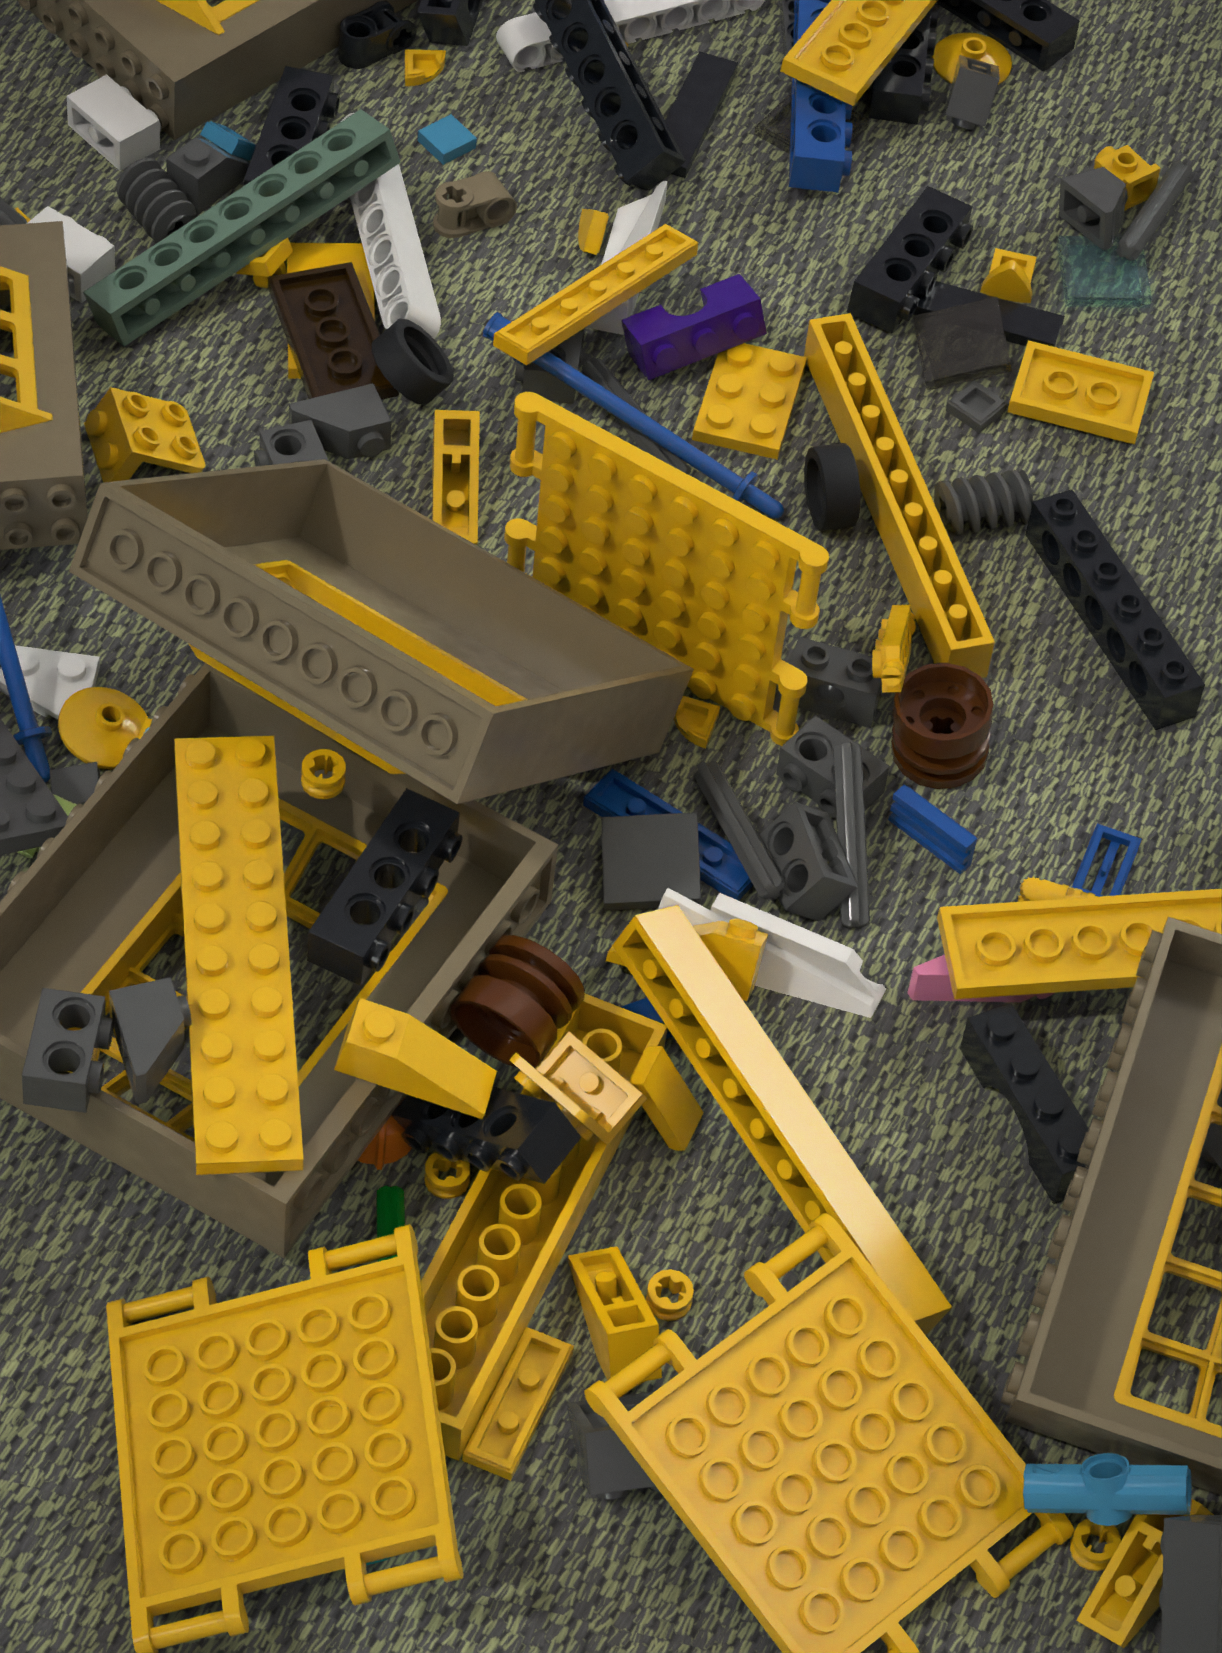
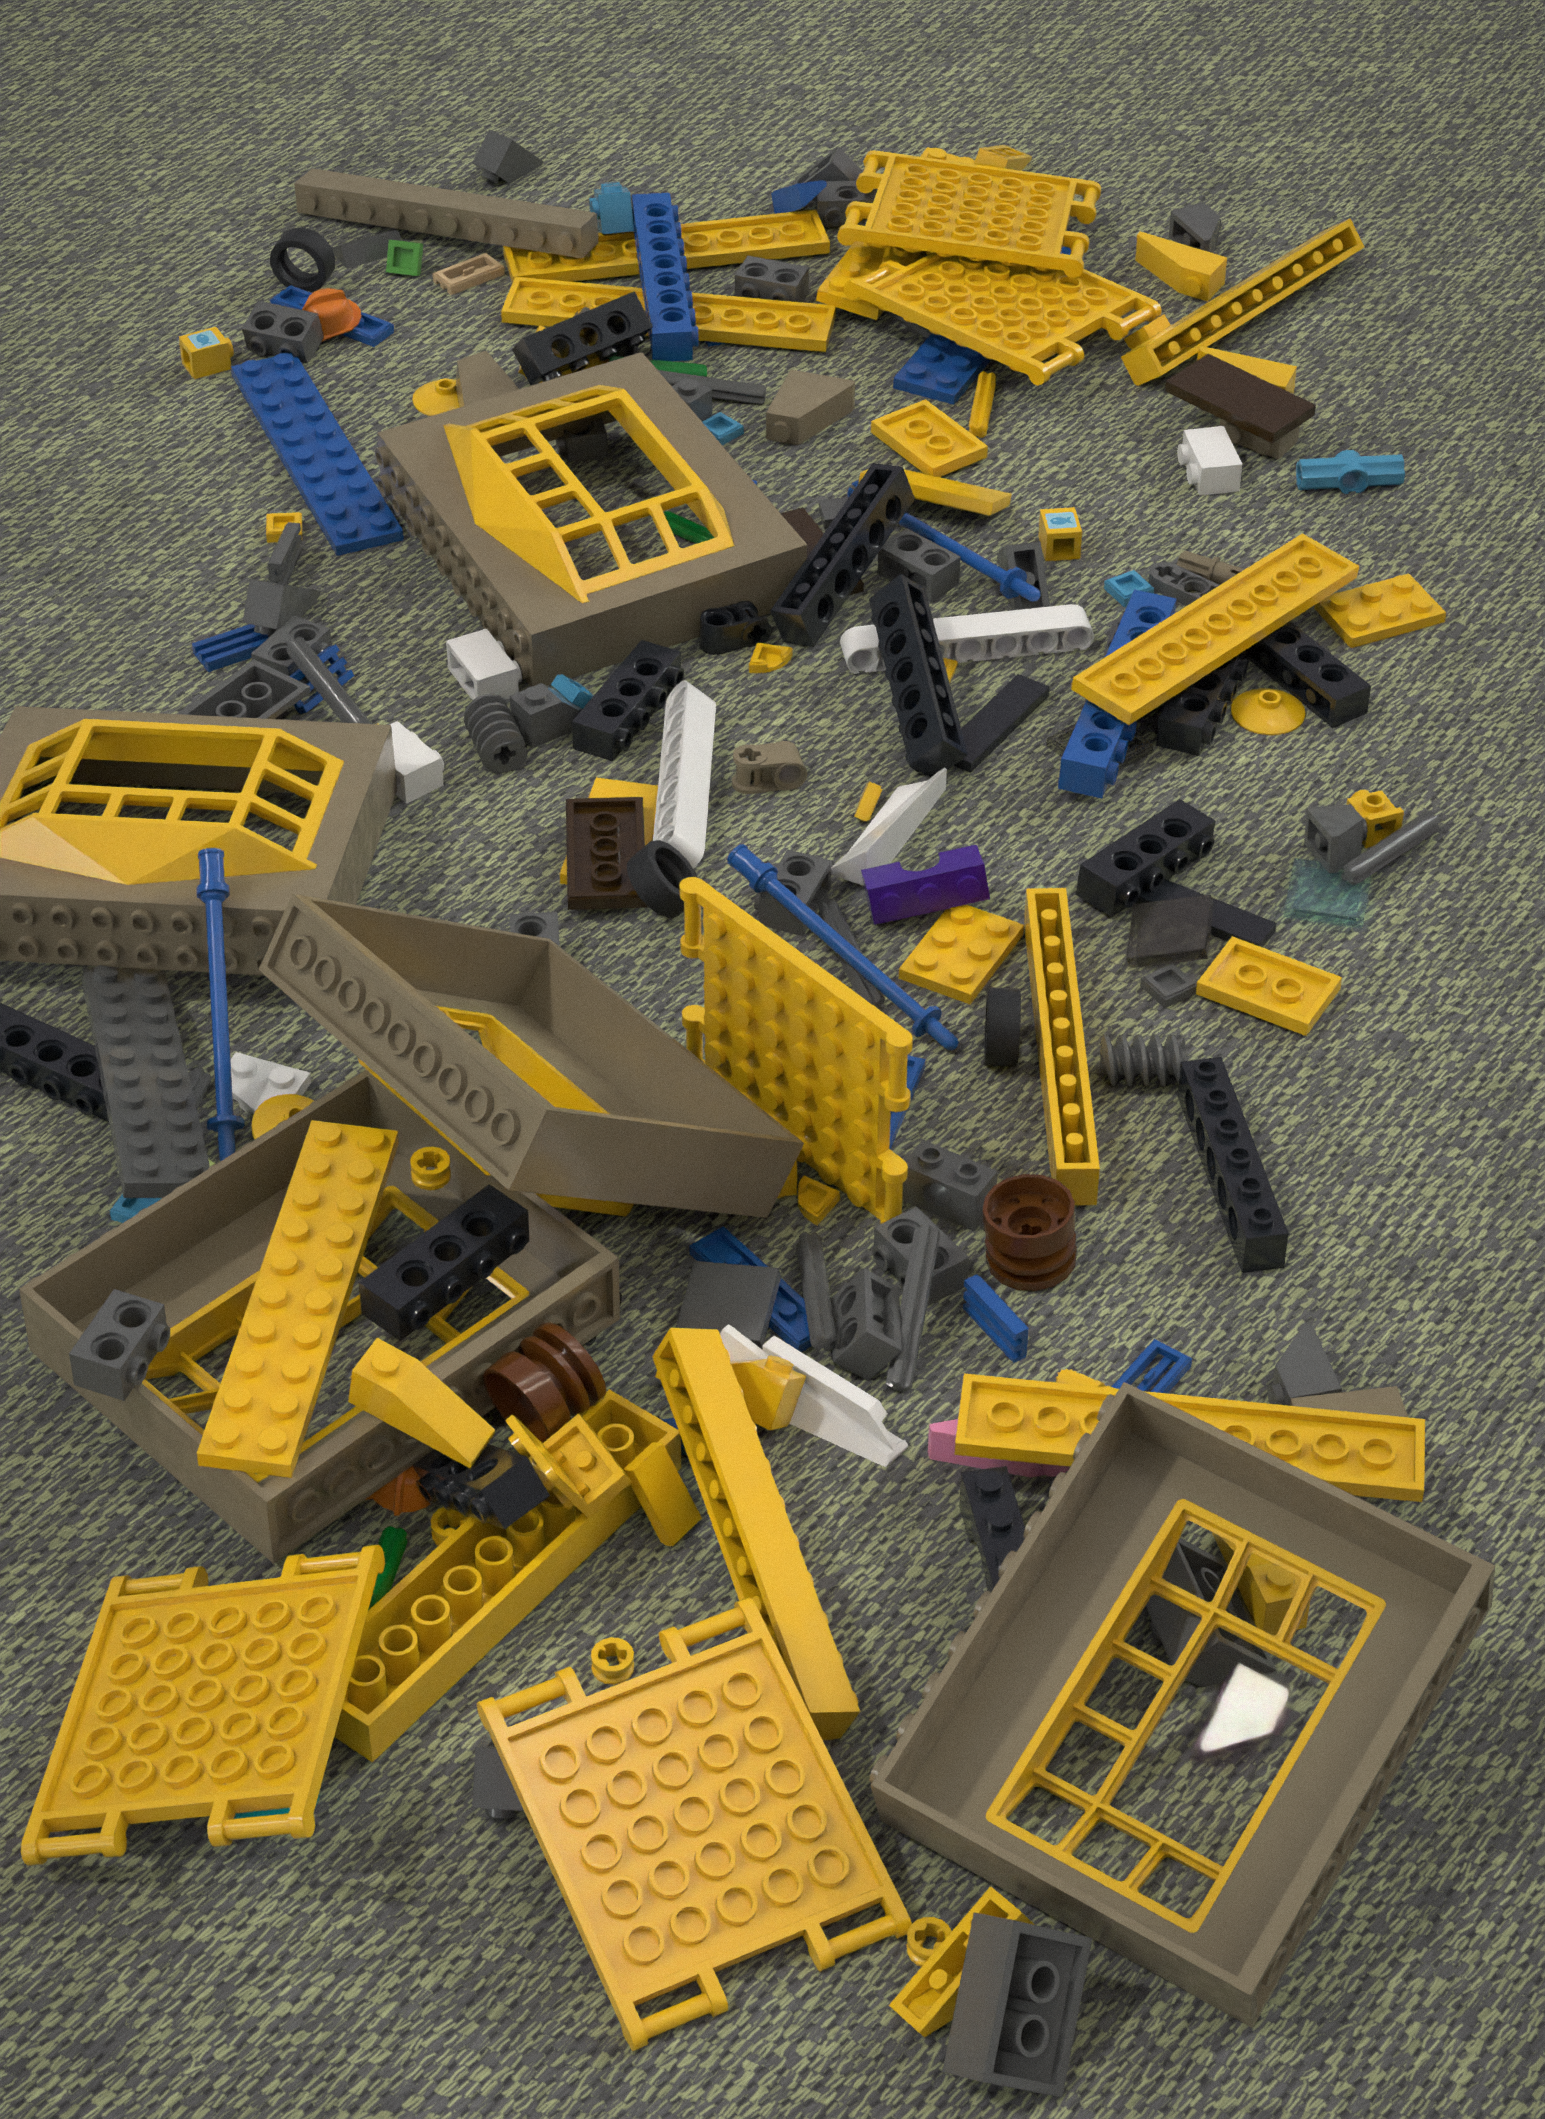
camera: 20 degrees right, 10 degrees down
(139, 429) = (414, 894): yellow bracket -> none
(148, 1032) = (196, 1343): dark grey slope -> none
(242, 227) = (553, 755): sand green brick -> none
(268, 264) = (568, 783): yellow tile -> none
(347, 421) = (591, 920): dark grey slope -> none
(447, 139) = (768, 716): dark azure tile -> none
(456, 471) = (668, 976): yellow slope -> none
(518, 1403) = (440, 1726): yellow tile -> none
(595, 294) = (836, 841): yellow tile -> none
(613, 1309) = (553, 1647): yellow slope -> none
(894, 648) = (1001, 1157): yellow plate -> none
(972, 92) = (1252, 732): dark grey slope -> none
(1010, 276) = (1238, 885): yellow tile -> none
(1107, 1489) = (938, 1883): dark azure piece -> none

